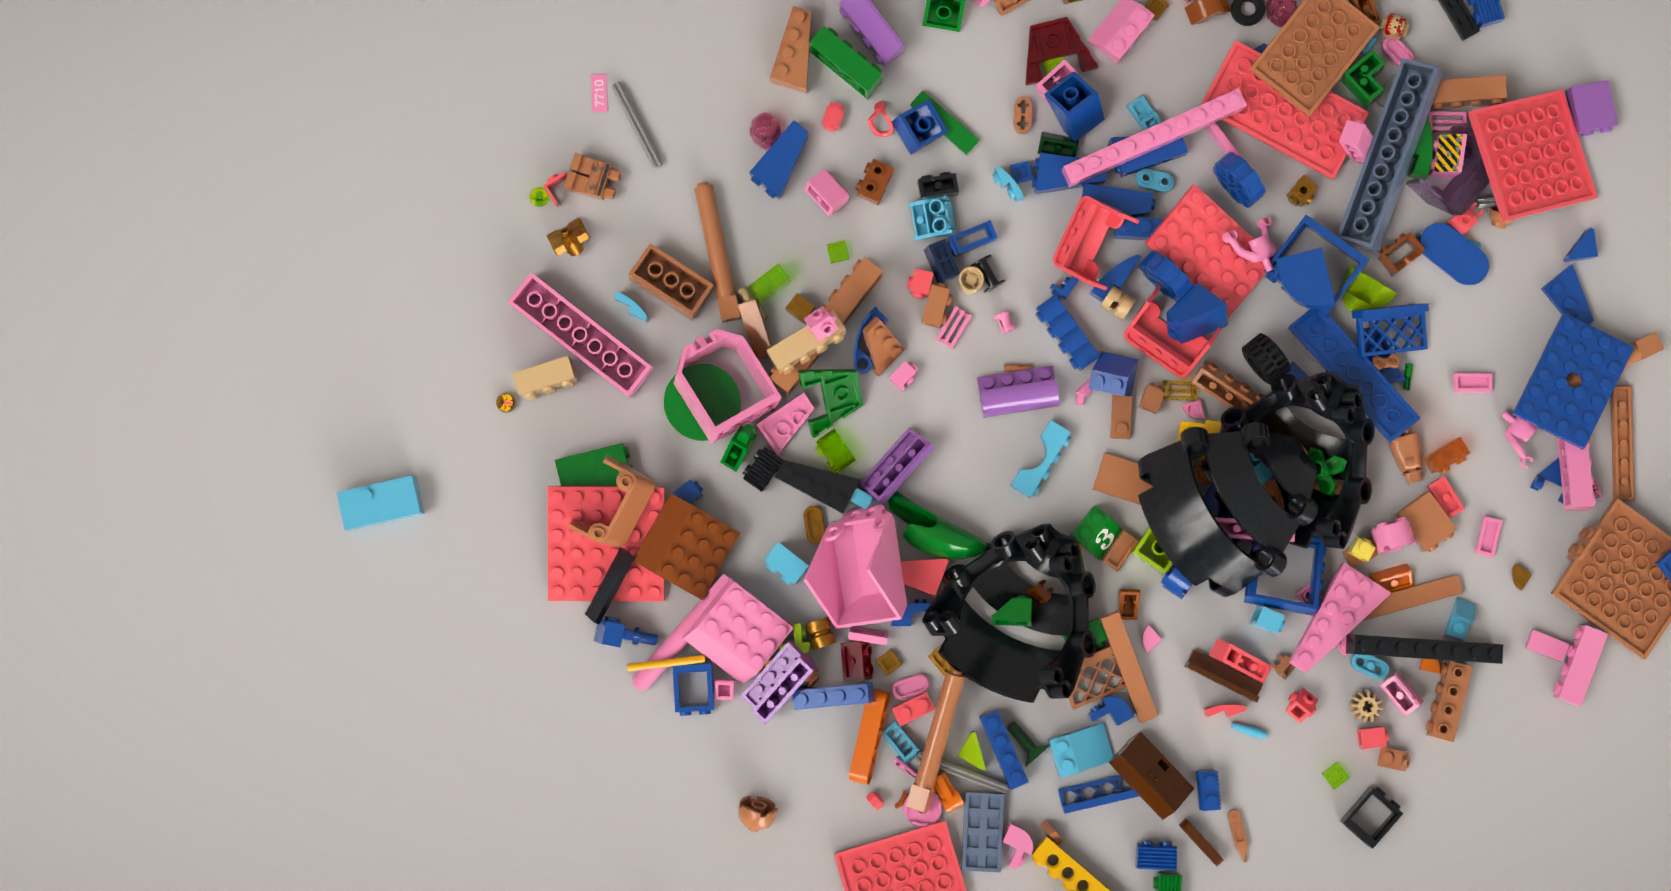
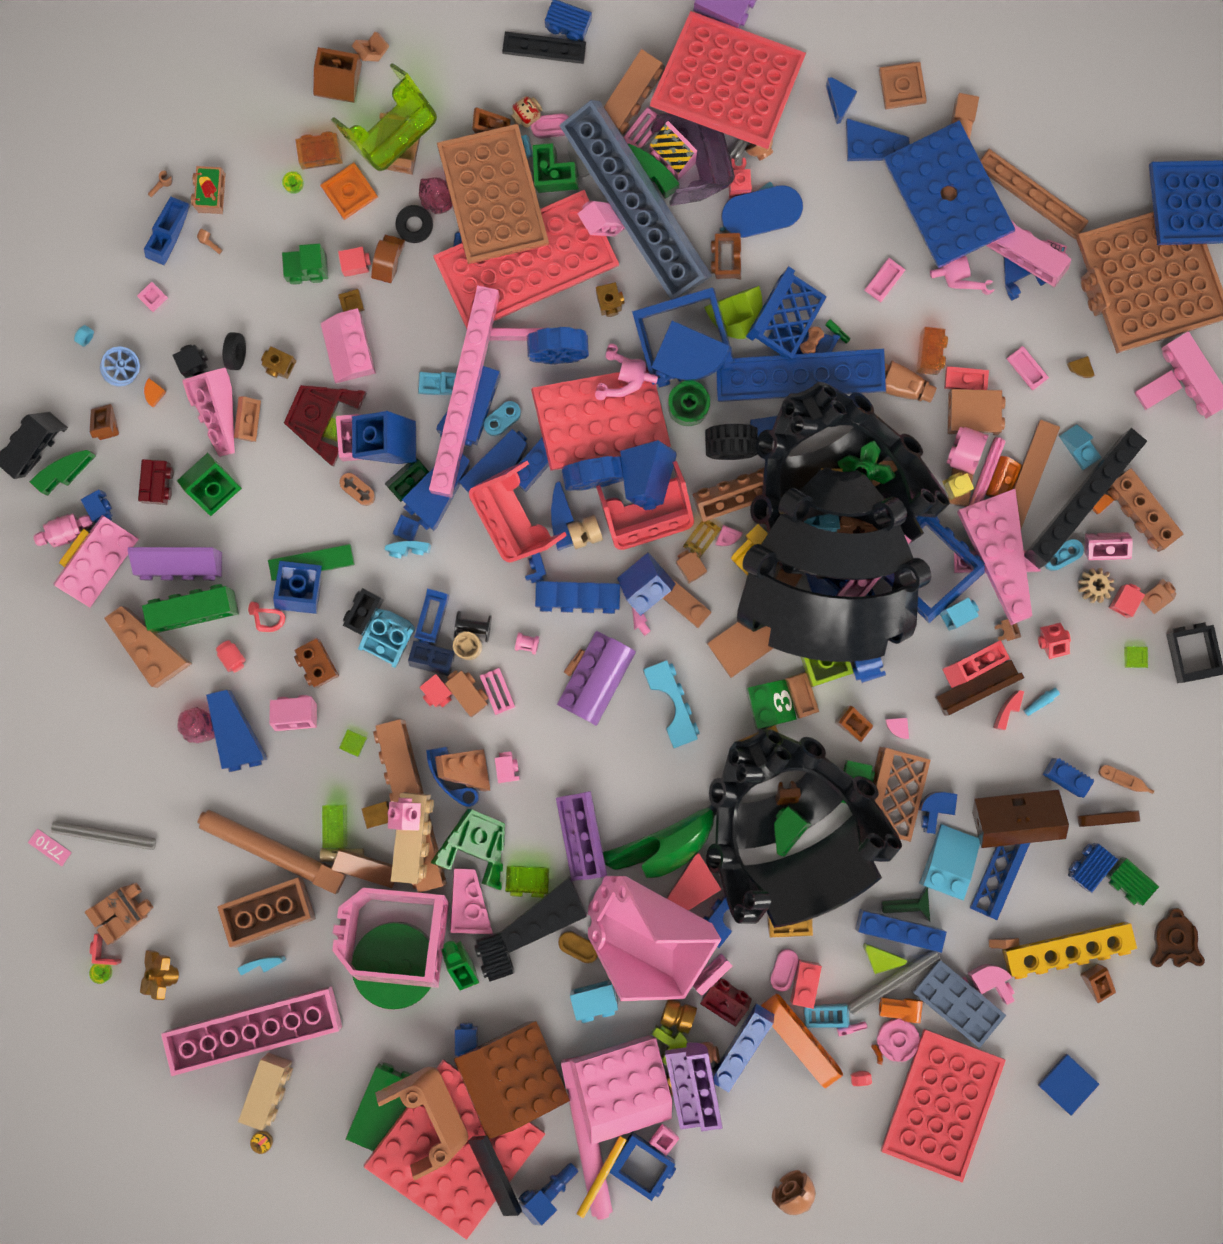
camera: 55 degrees left, 0 degrees up
(861, 498) = (586, 889): medium azure slope -> none
(888, 662) = (748, 973): pearl gold tile -> none
(923, 788) = (883, 1029): nougat brick -> none
(1128, 666) = (910, 765): nougat tile -> none
(1270, 296) = (699, 398): none -> green brick
(1390, 563) = (987, 471): none -> bright pink axle
(1629, 287) = (902, 85): none -> nougat tile

